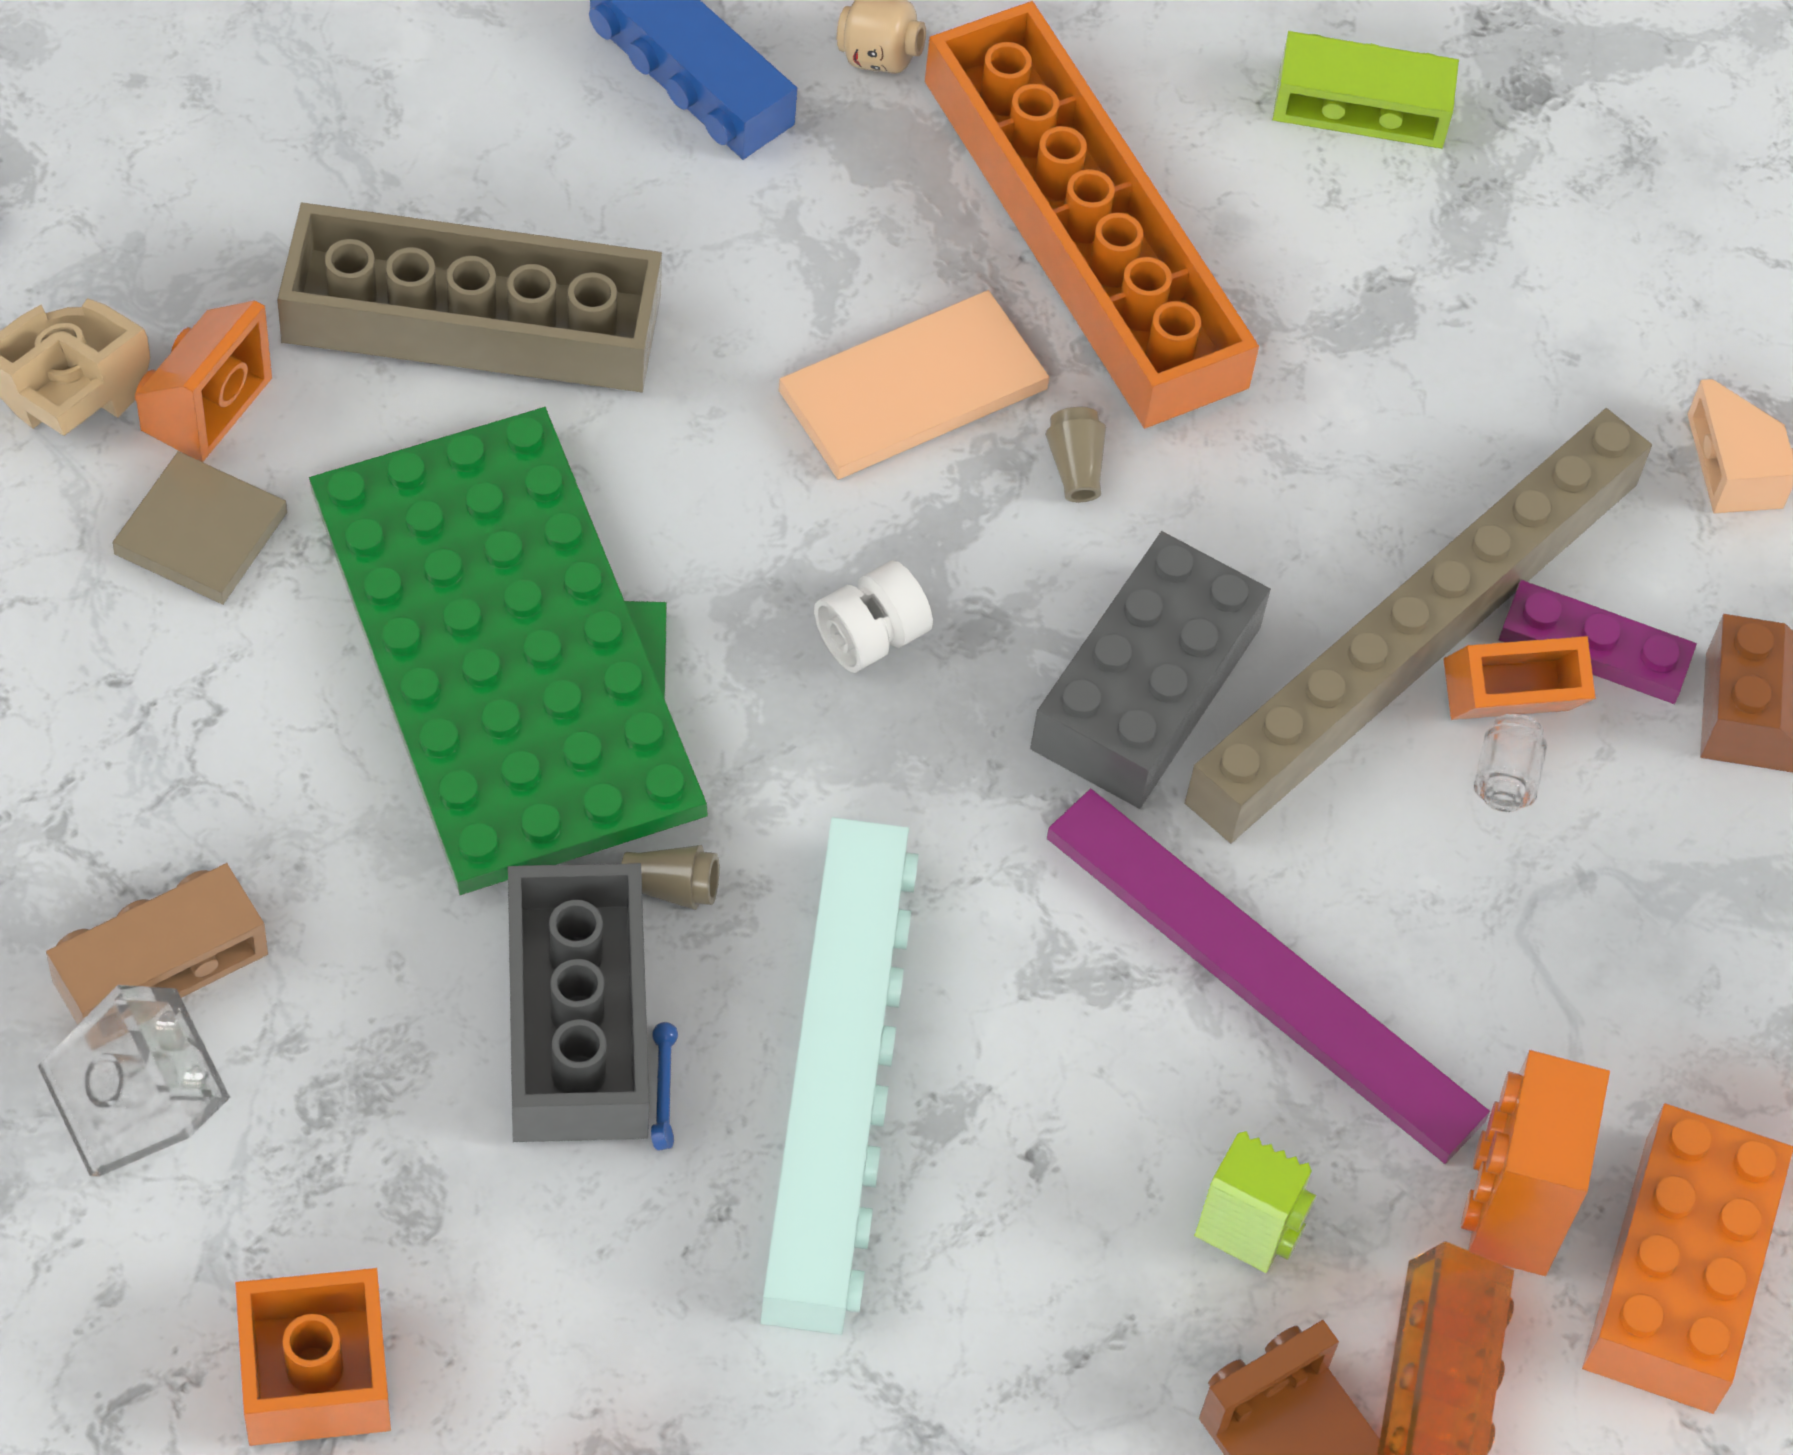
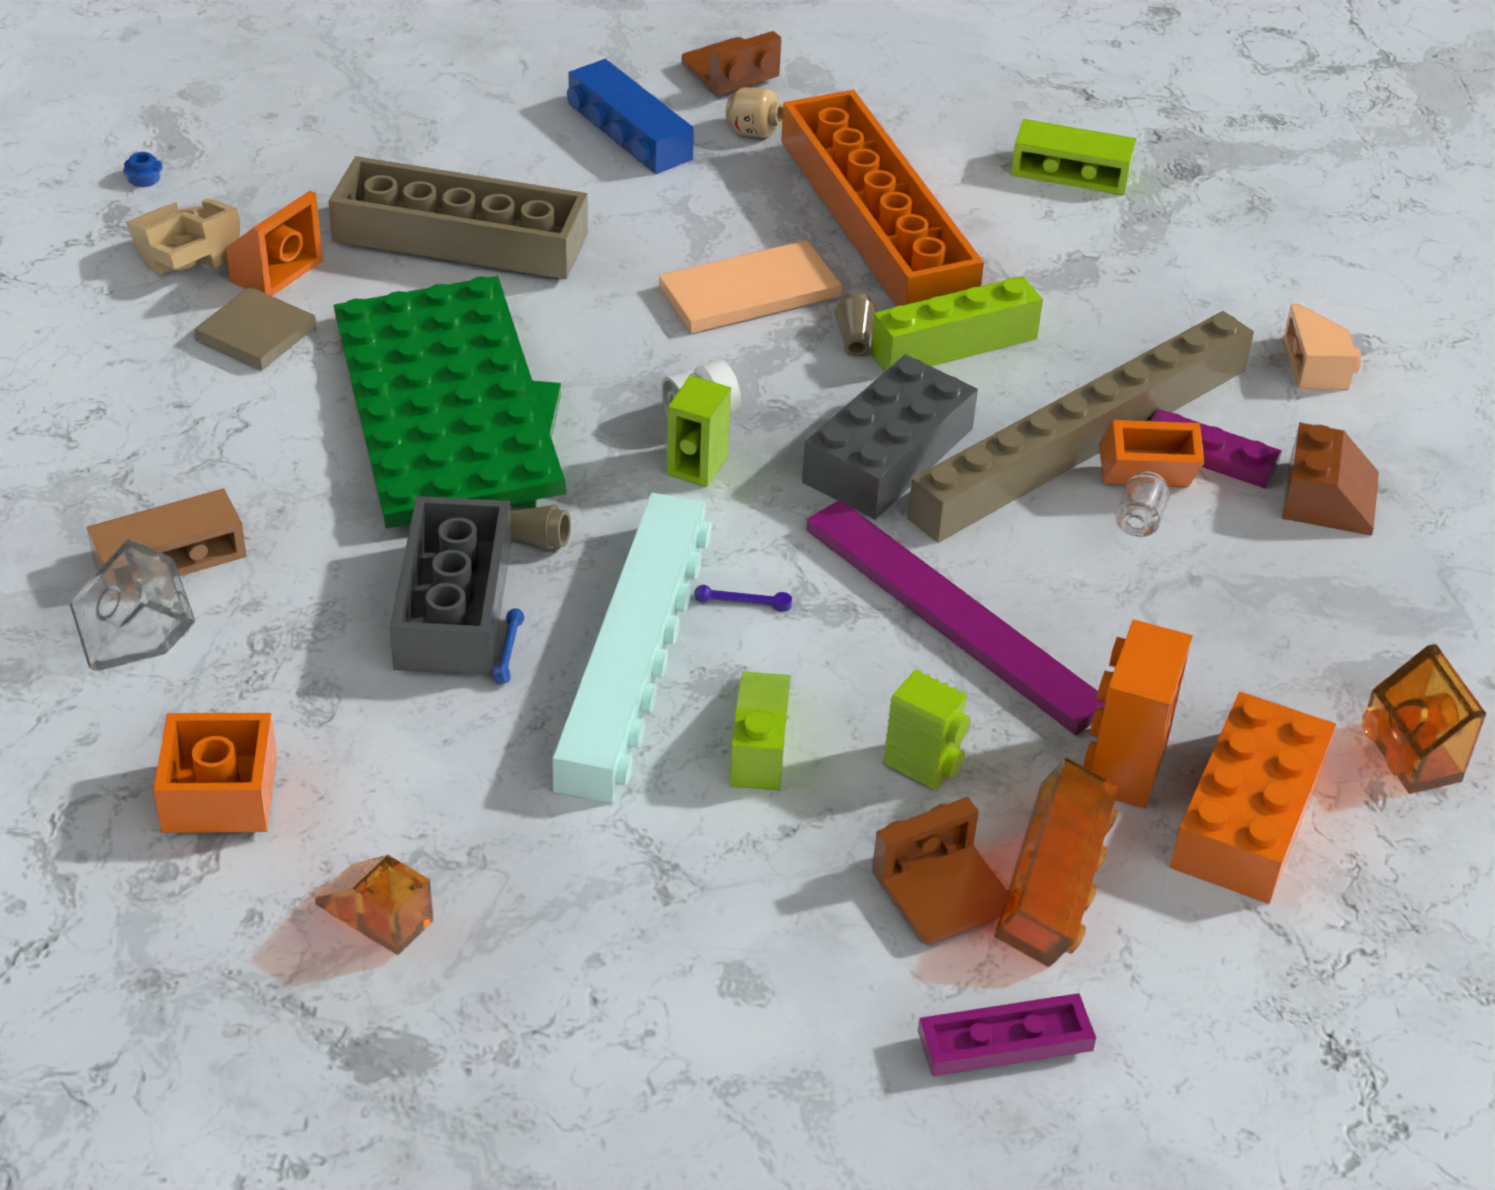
camera: 10 degrees right, 15 degrees down
(883, 696) = (698, 430): none -> lime brick
(1026, 971) = (780, 601): none -> dark purple hinge
(1028, 1197) = (759, 731): none -> lime slope
(1223, 450) = (958, 324): none -> lime brick

